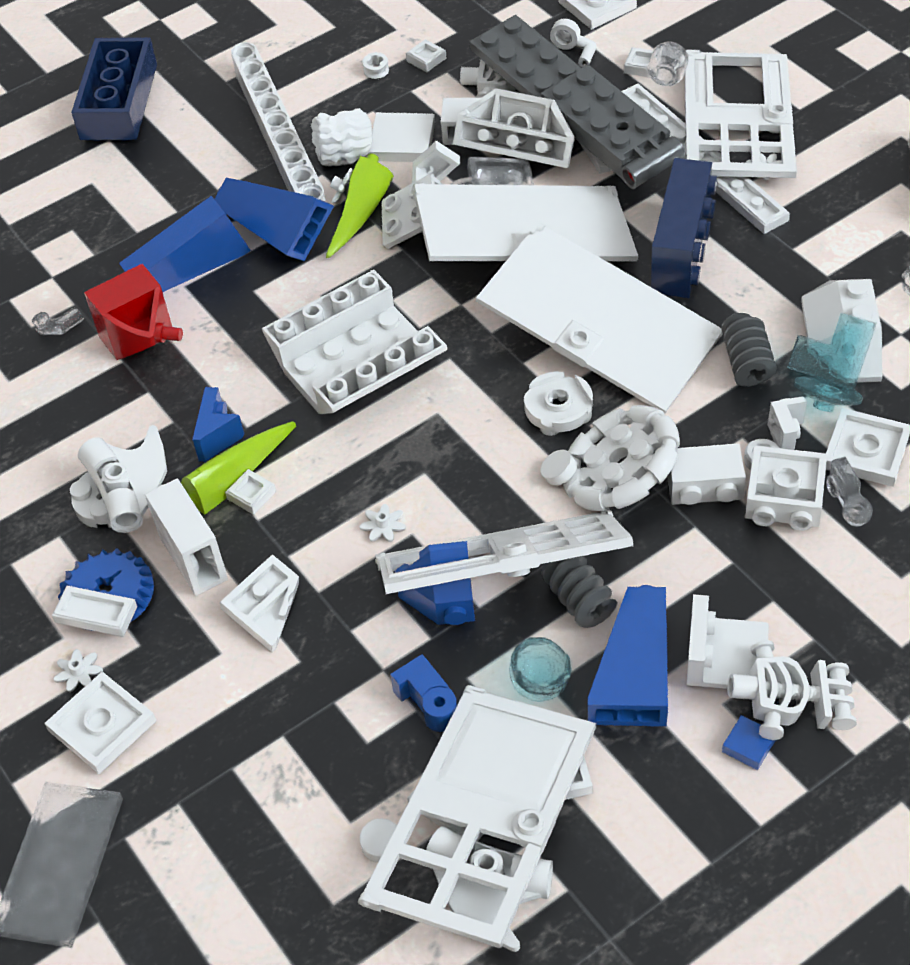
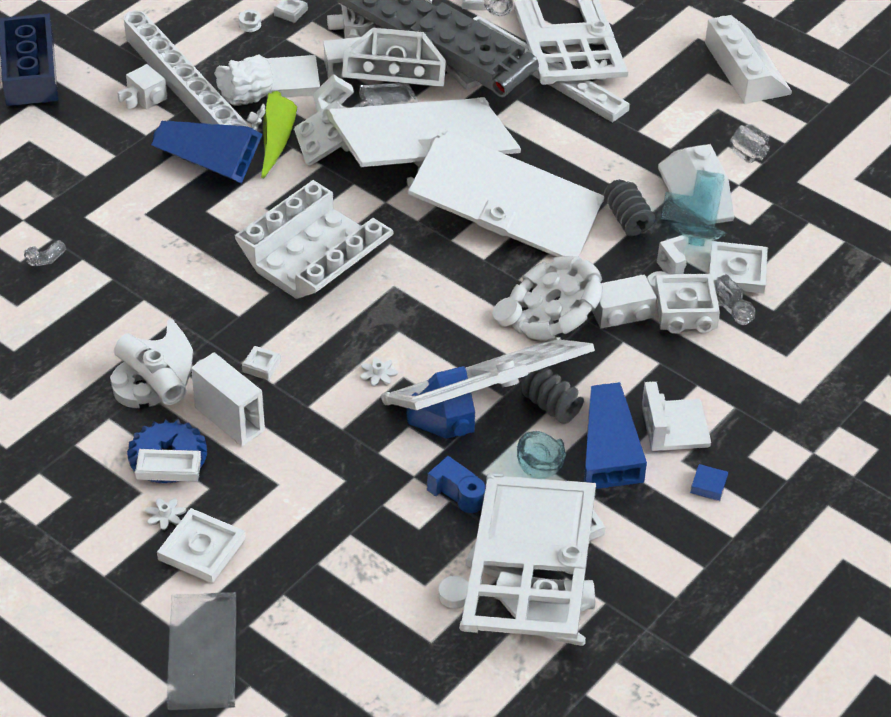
camera: 20 degrees left, 5 degrees down
(131, 313) = (116, 237): red piece -> none
(190, 246) = (141, 183): blue slope -> none
(212, 479) = (239, 344): lime piece -> none
(214, 427) = (218, 318): blue slope -> none
(230, 133) = (144, 87): none -> white brick
(263, 601) = (303, 440): white wing -> none
(563, 417) = (491, 276): white plate -> none
(683, 227) = (554, 121): dark blue brick -> none
(786, 680) = (721, 435): white piece -> none

